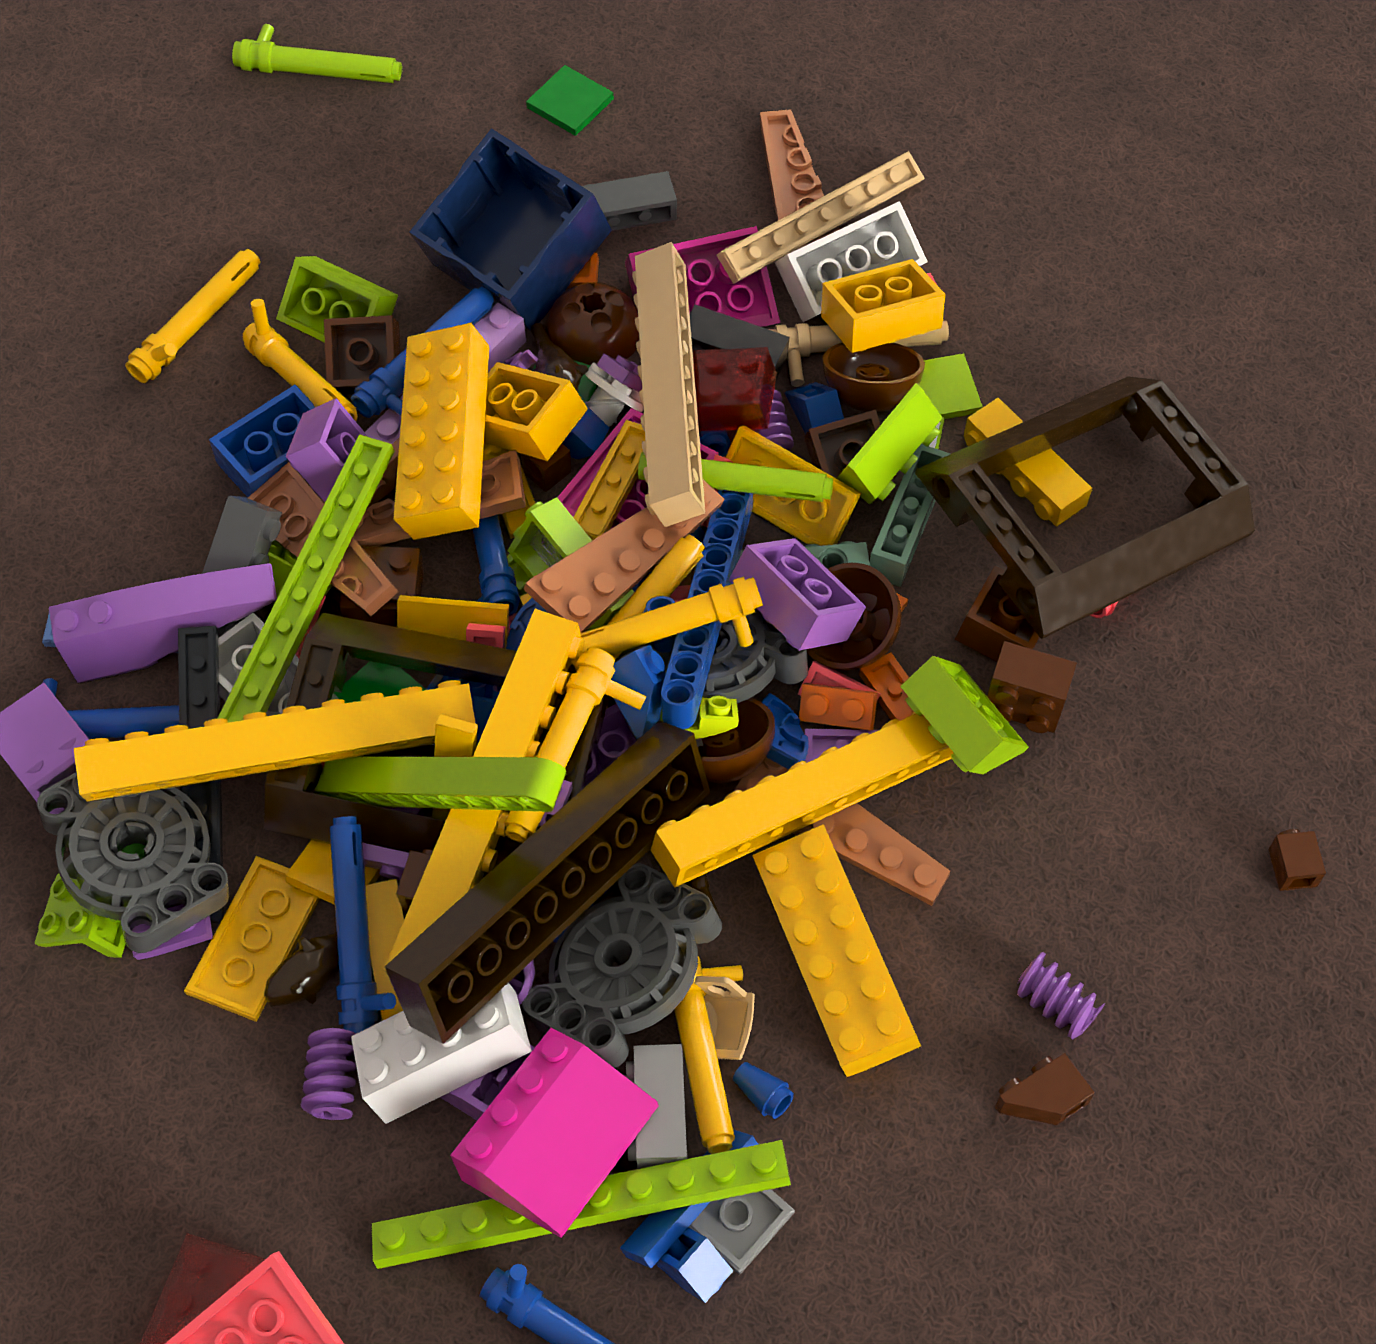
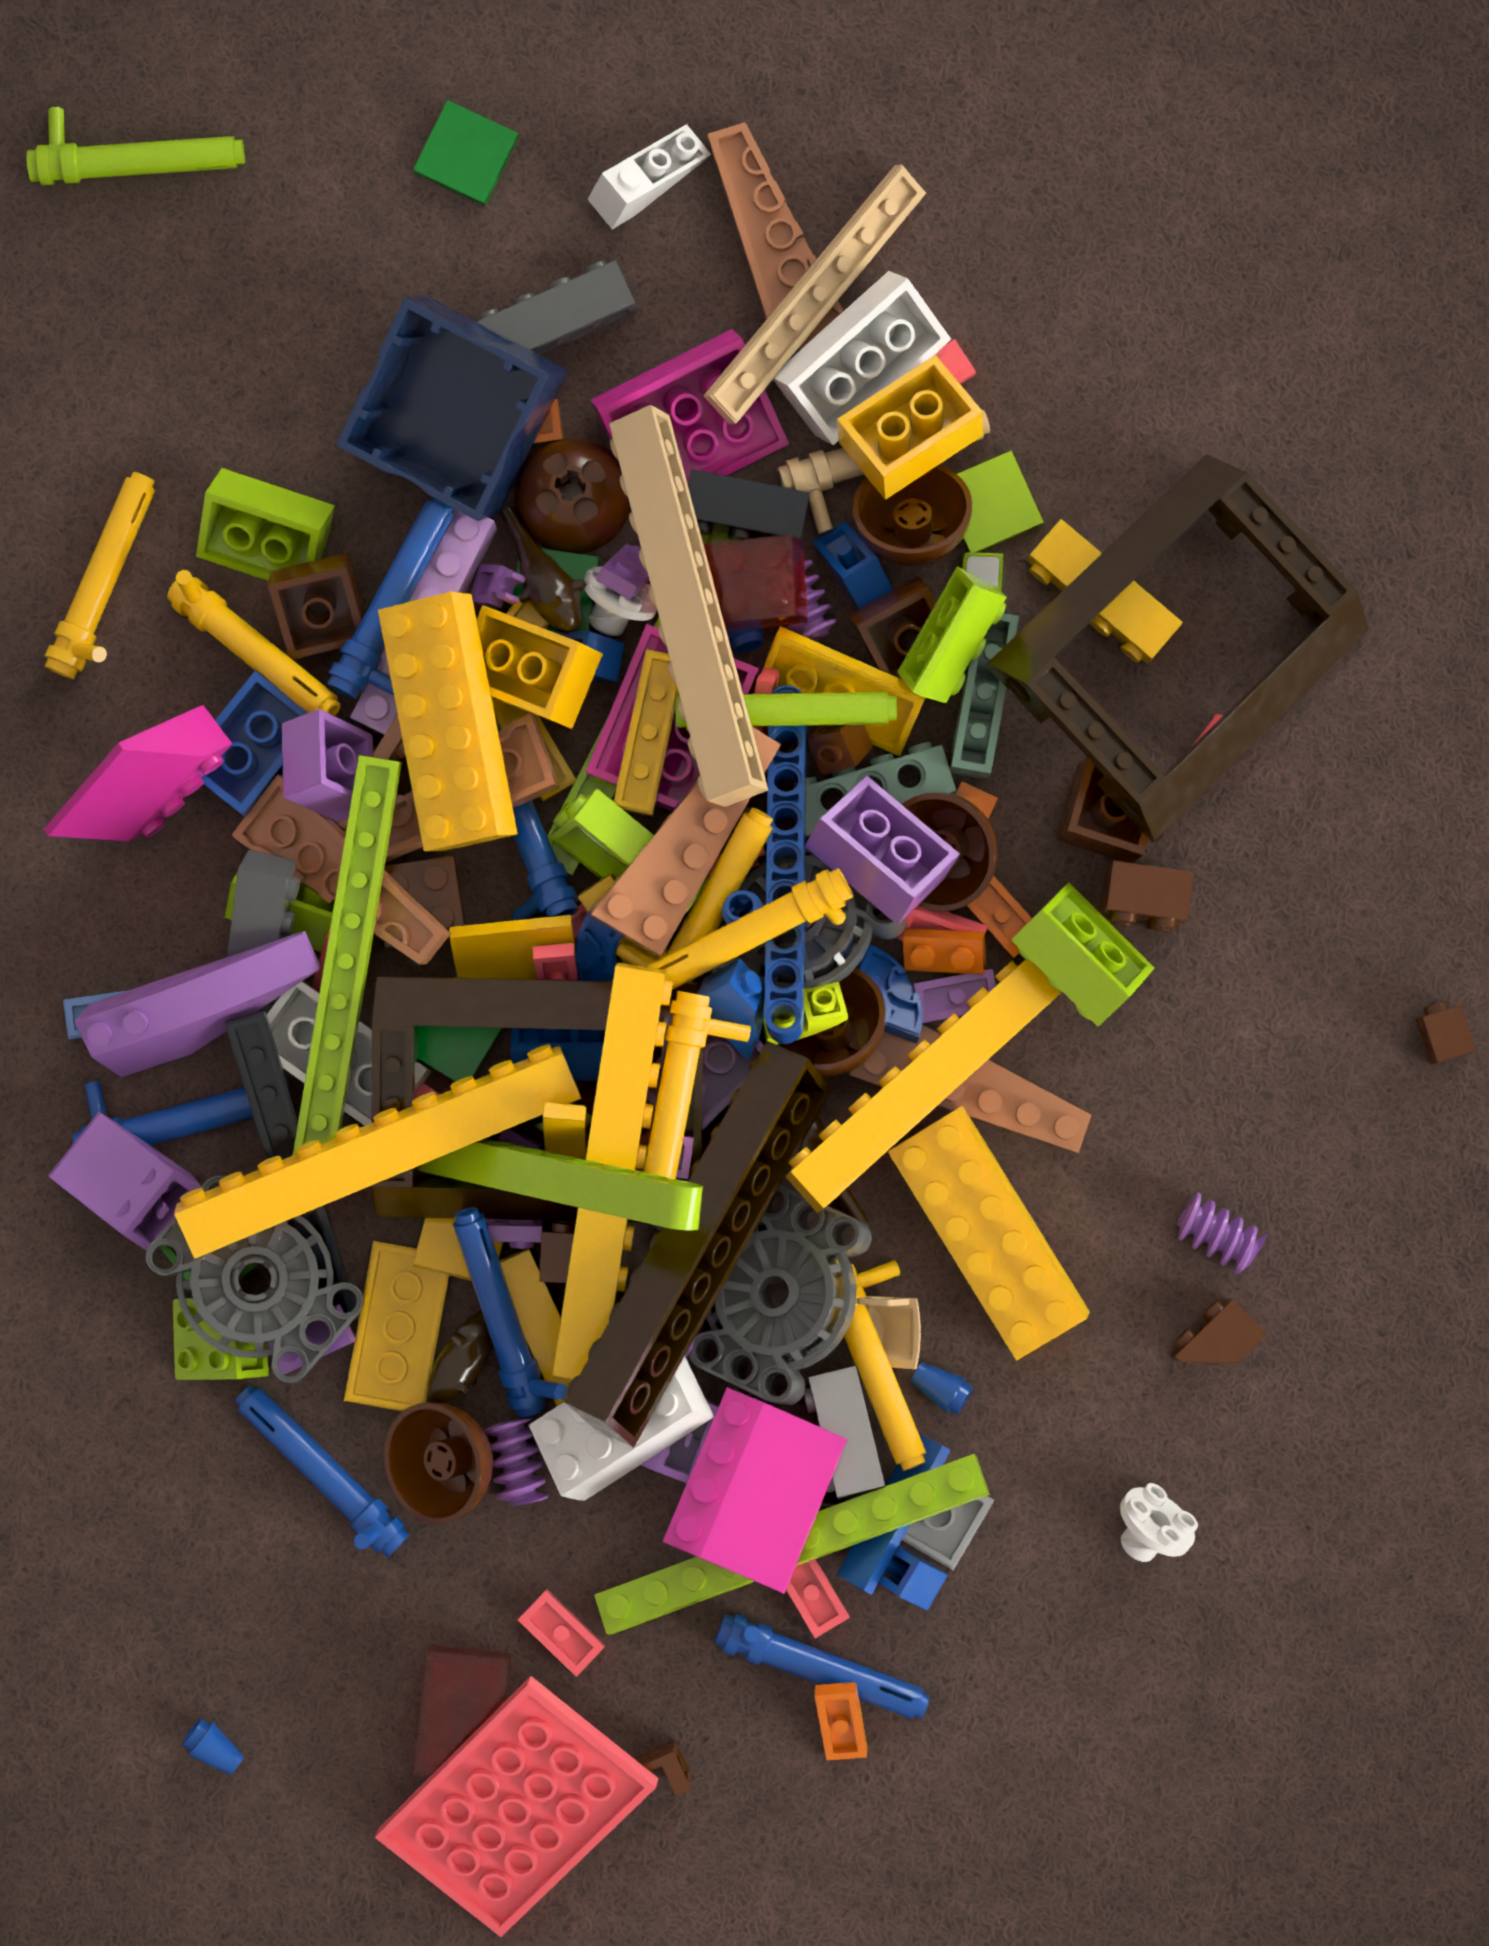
camera: 10 degrees left, 25 degrees up
(167, 1095) = (367, 1515): none -> blue cylinder
(168, 428) = (143, 780): none -> dark pink slope
(254, 1051) = (437, 1461): none -> reddish brown piece
(328, 1254) = (561, 1632): none -> coral plate
(592, 1267) = (816, 1598): none -> coral plate
(700, 131) = (646, 176): none -> white slope
(777, 524) = (839, 746): none -> reddish brown brick
(953, 1263) = (1155, 1524): none -> white plate

